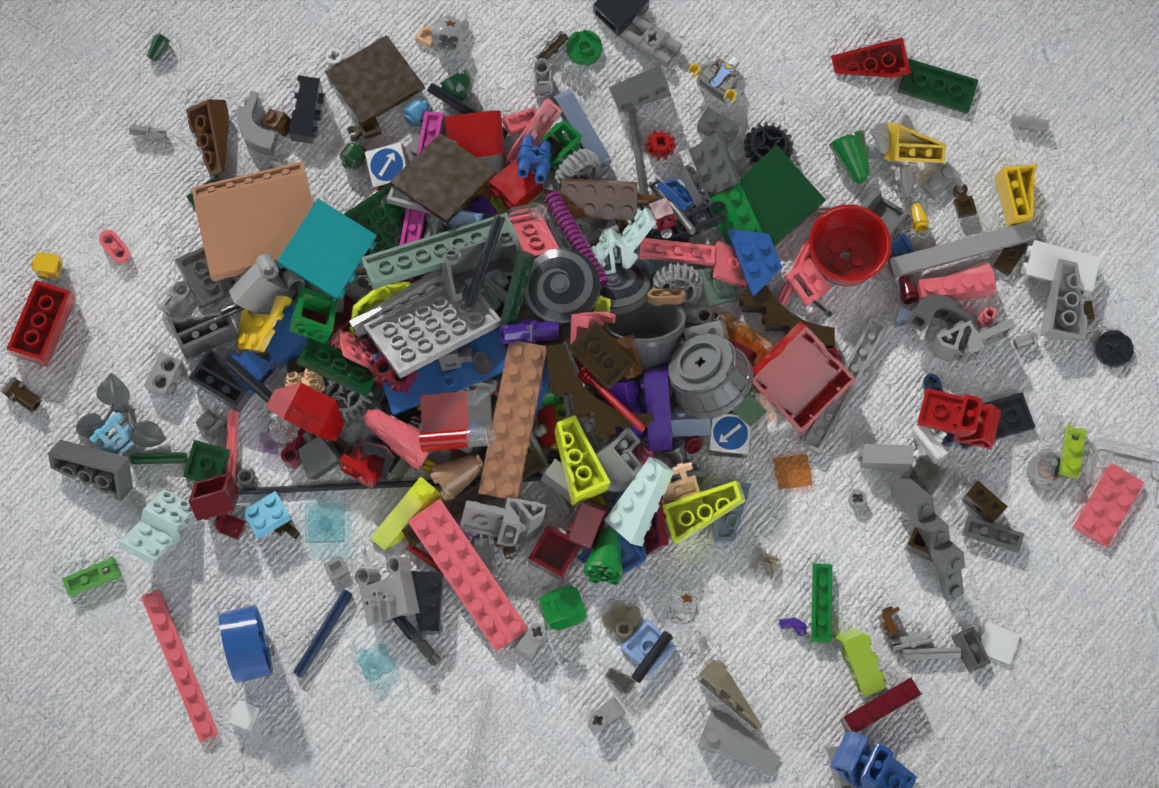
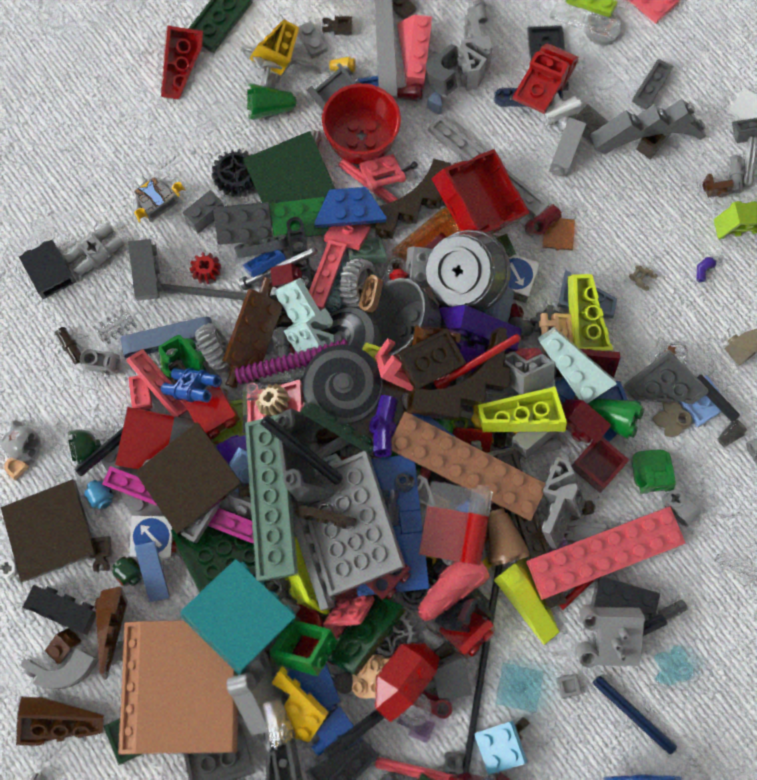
camera: 75 degrees left, 0 degrees up
(244, 310) = (278, 723): none -> clear wing
(311, 151) = (109, 617): none -> reddish brown wedge
(351, 299) = (286, 601): none -> light grey tile
(356, 175) = (152, 571): none -> medium blue tile
(432, 302) = (324, 516): none -> dark brown plate
(532, 230) = (272, 400): none -> tan gear
(584, 47) = (79, 315): green tile -> none
(654, 602) = (666, 381): none -> dark grey plate
(691, 317) = (398, 273): none -> red plate
(800, 452) = (543, 220): none -> dark red piece
(821, 603) = (689, 239): green plate -> none
(855, 493) = (597, 179): light grey bush -> none
(984, 502) = (624, 82): dark brown brick -> none
(986, 318) = (457, 32): coral pin -> none

